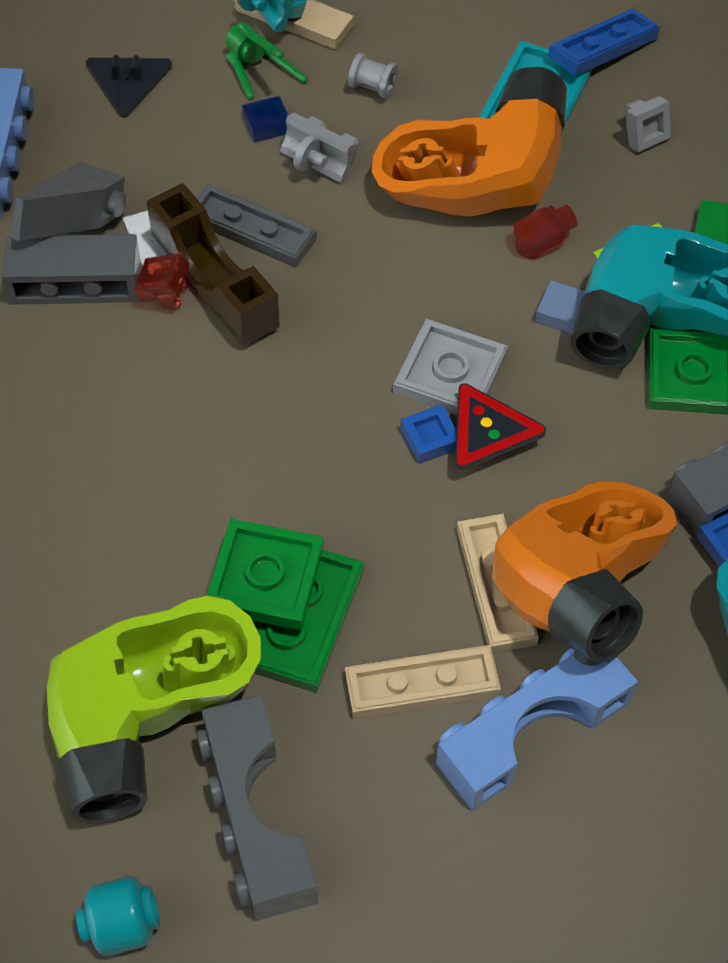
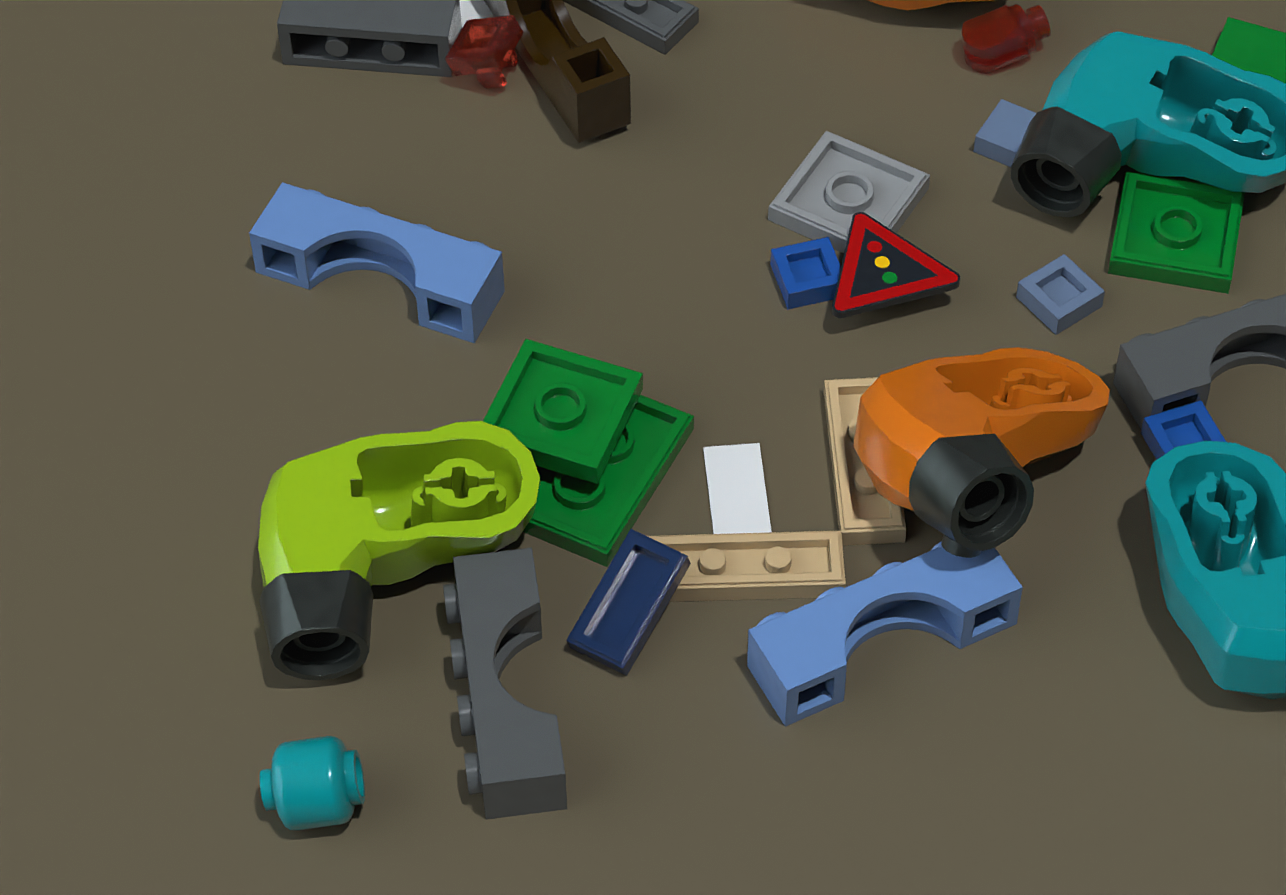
camera: 10 degrees right, 5 degrees down
(52, 447) = (313, 237): none -> medium blue arch
(340, 725) = (628, 602): none -> dark blue tile
(405, 618) = (737, 489): none -> white sticker
(618, 430) = (1060, 294): none -> sand blue tile

